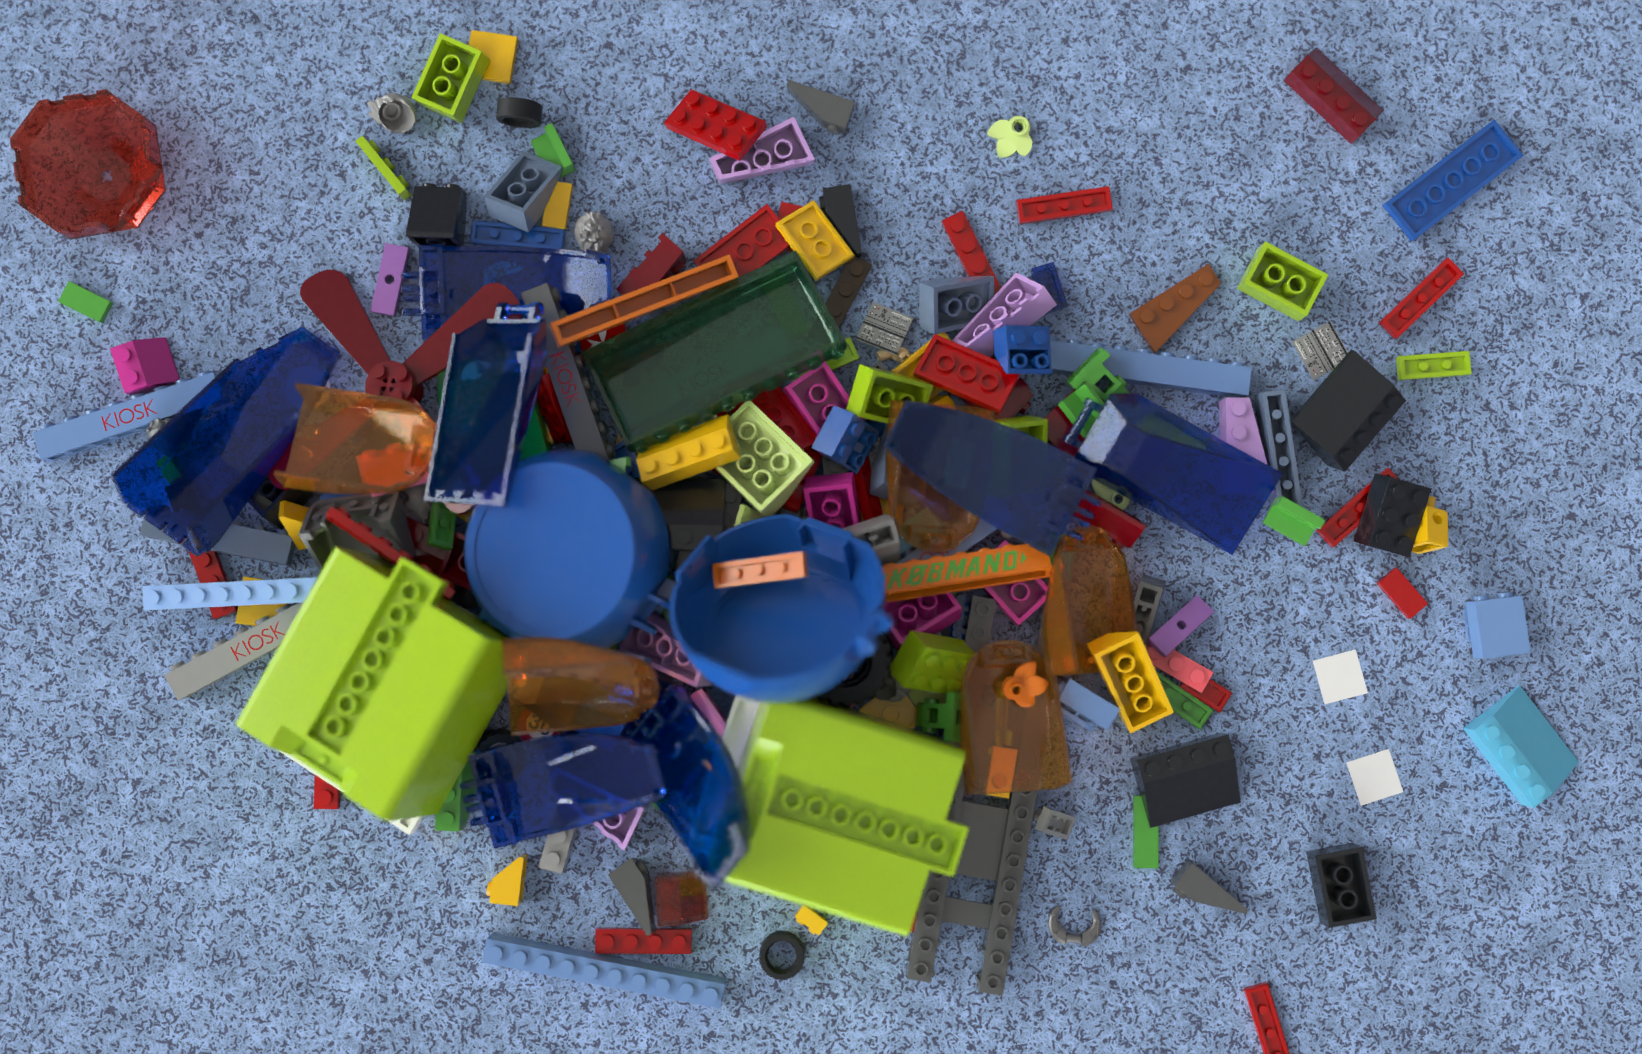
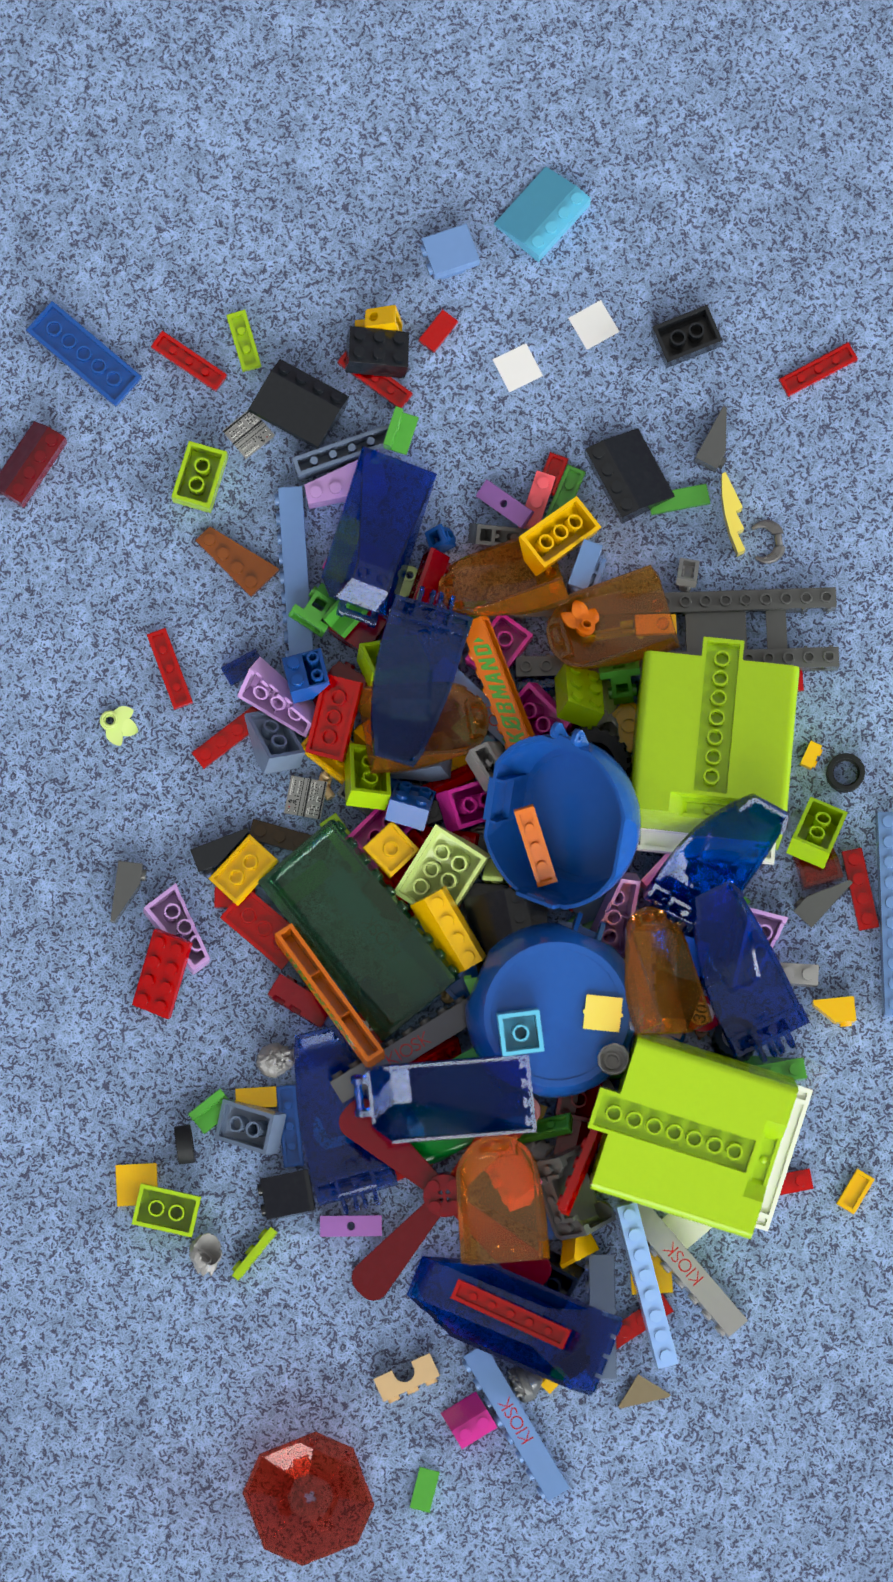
camera: 100 degrees left, 5 degrees down
(133, 564) = (642, 1392): none -> dark tan tile
(202, 288) = (424, 1372): none -> tan arch
(244, 435) = (511, 1314): none -> red plate
(301, 855) = (855, 1191): none -> yellow tile
(480, 606) = (613, 1059): none -> light grey hair
(533, 501) = (520, 1032): none -> medium azure brick
(538, 605) = (602, 1013): none -> light yellow piece
(716, 911) = (816, 832): none -> lime brick
(798, 406) = (391, 849): none -> yellow tile
(1124, 891) = (732, 506): none -> light yellow slope
(1157, 548) = (445, 538): none -> blue brick

